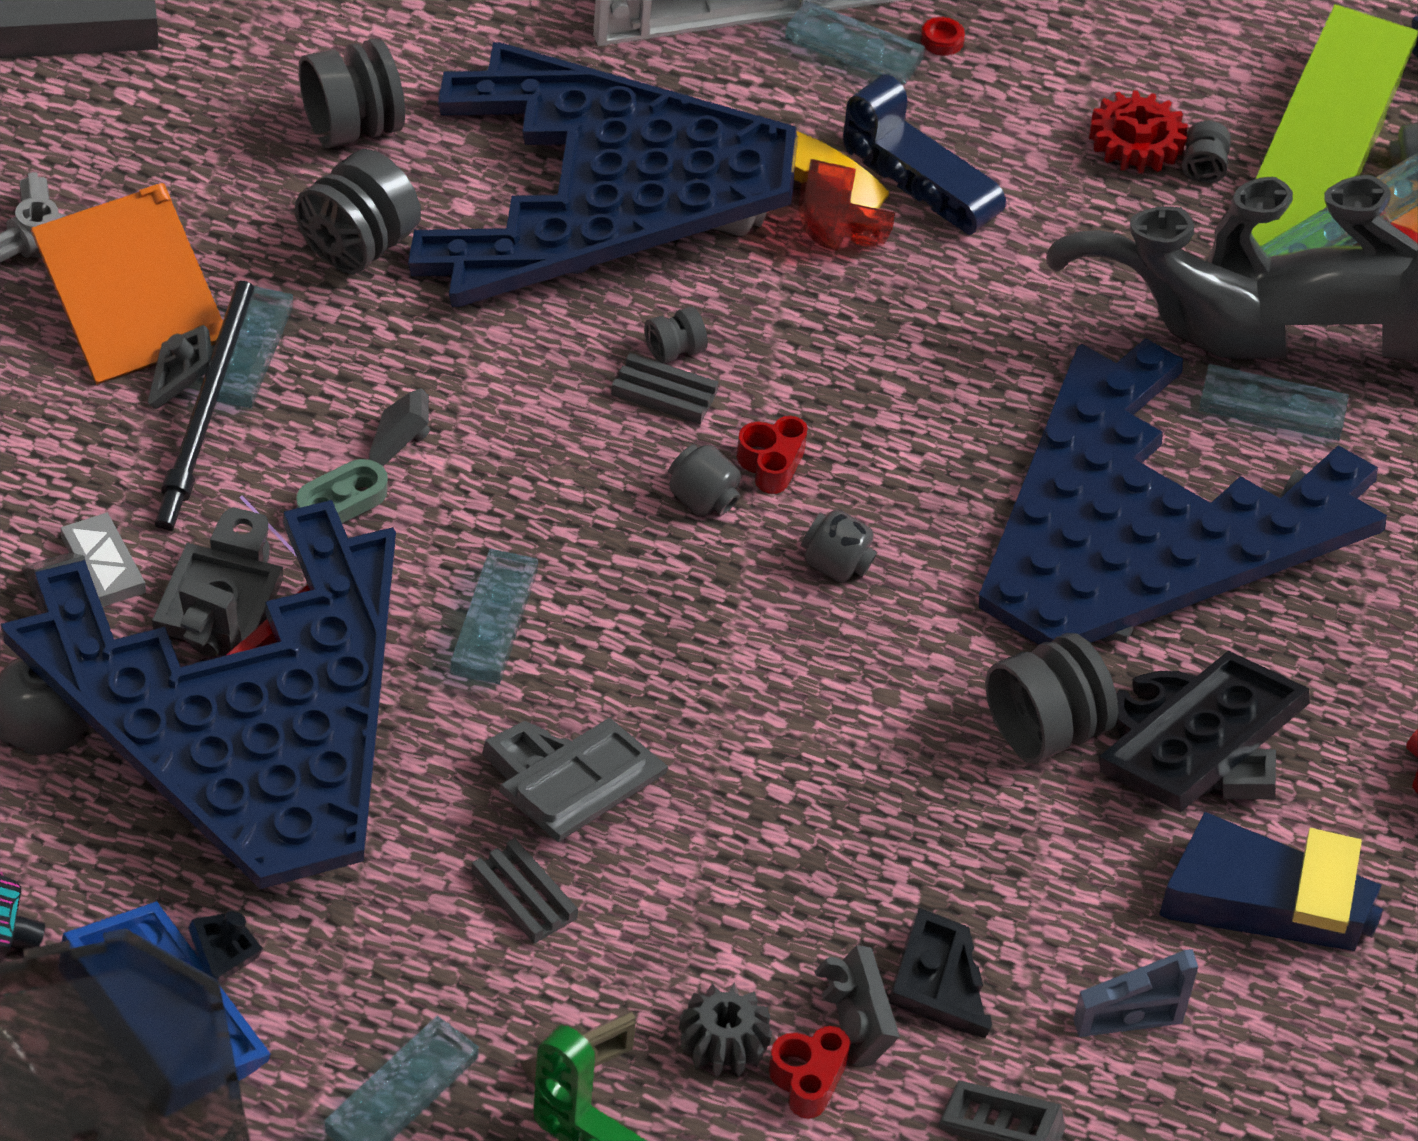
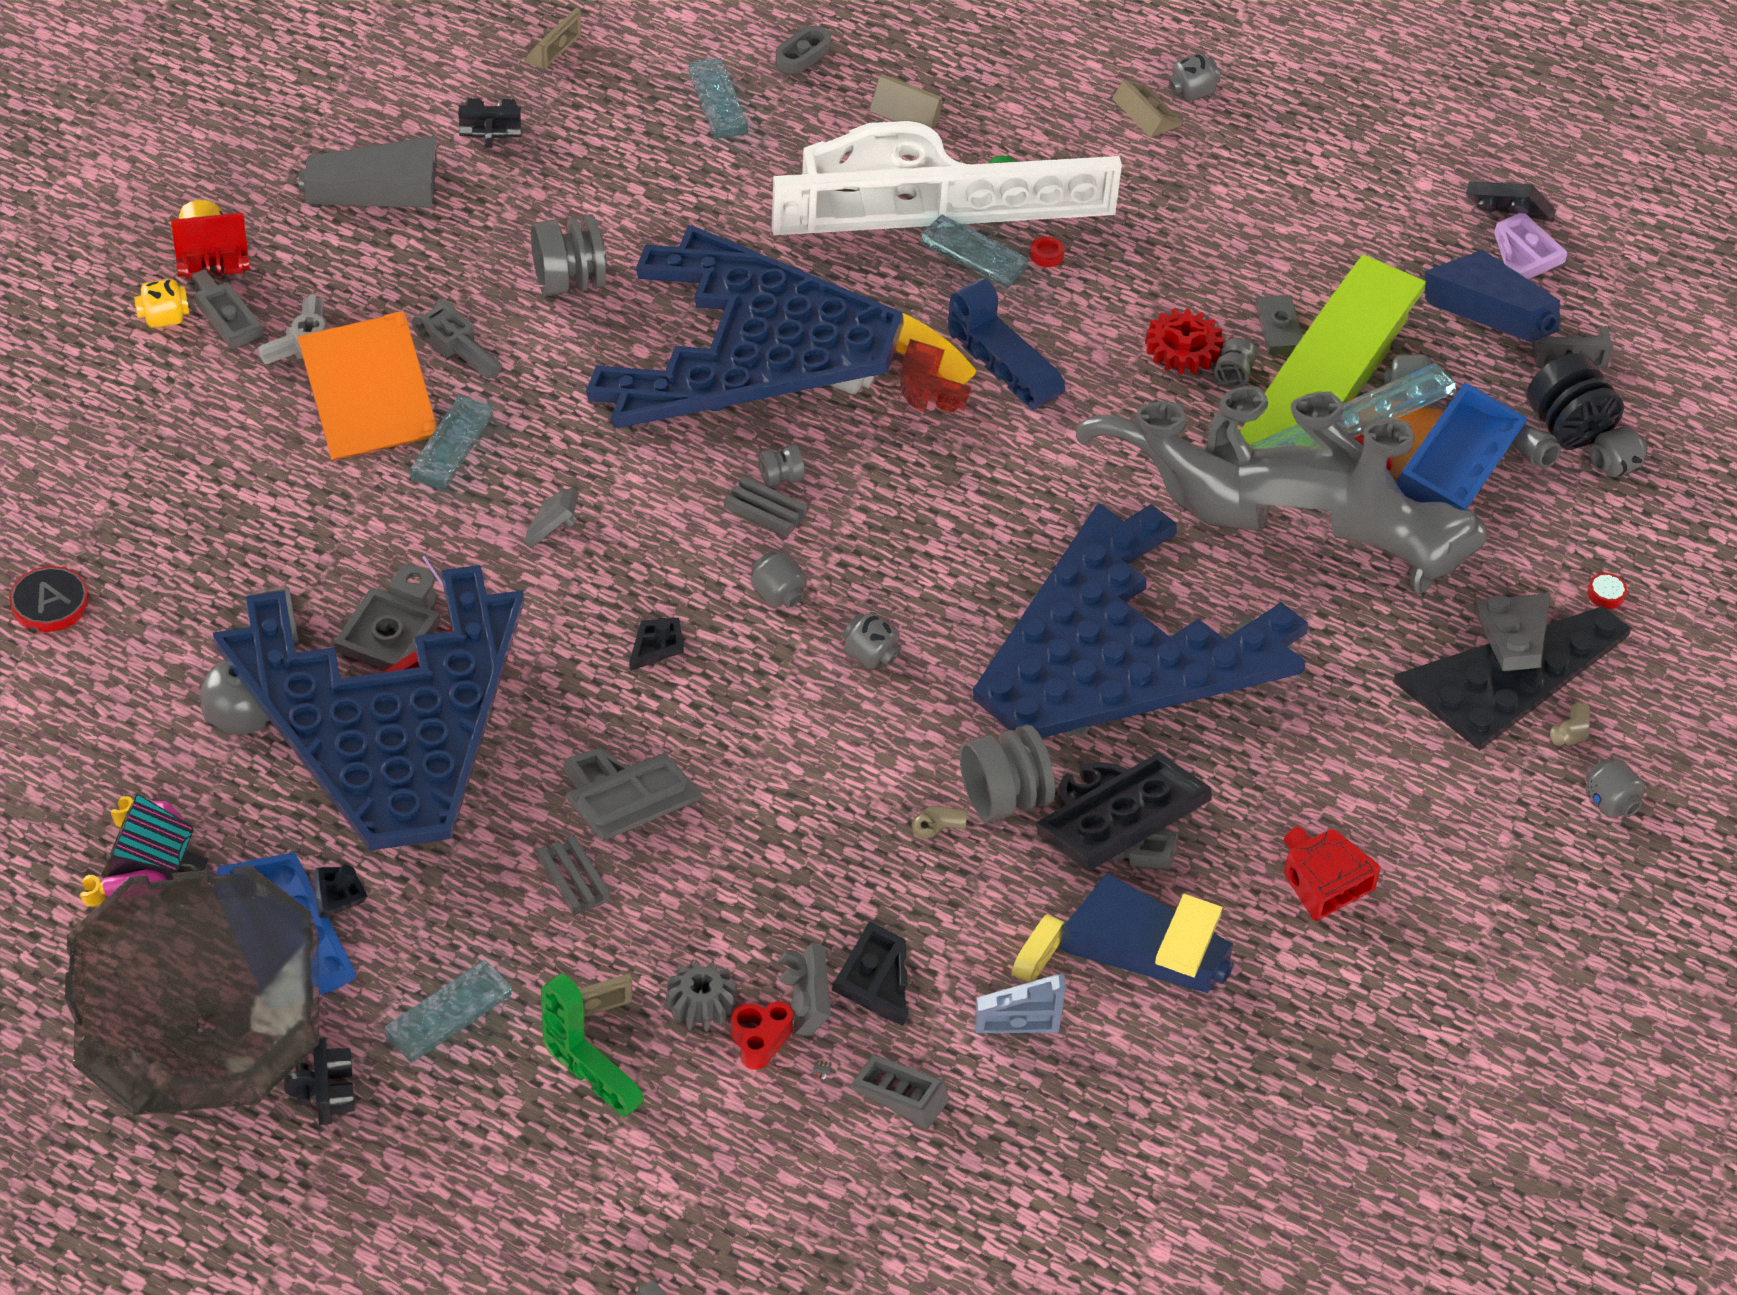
camera: 10 degrees right, 0 degrees up
(106, 558) = (308, 593): light grey tile -> none
(179, 480) = (377, 539): black bar -> none
(180, 364) = (395, 451): dark grey piece -> none
(209, 618) = (369, 644): dark grey plate -> none
(224, 207) = (454, 334): none -> dark grey connector
(341, 488) = (497, 558): sand green plate -> none
(358, 211) = (553, 346): dark grey wheel -> none
(494, 616) = (594, 666): clear light blue plate -> none
(566, 575) = (656, 641): none -> black piece
(782, 453) = (847, 563): red piece -> none
(896, 1106) = (822, 1068): none -> dark grey piece
(970, 765) = (937, 818): none -> dark tan arm
(1137, 919) = (1038, 949): none -> light yellow beam
(1246, 100) = (1278, 323): none -> dark grey plate
(1274, 402) = (1243, 564): clear light blue plate -> none

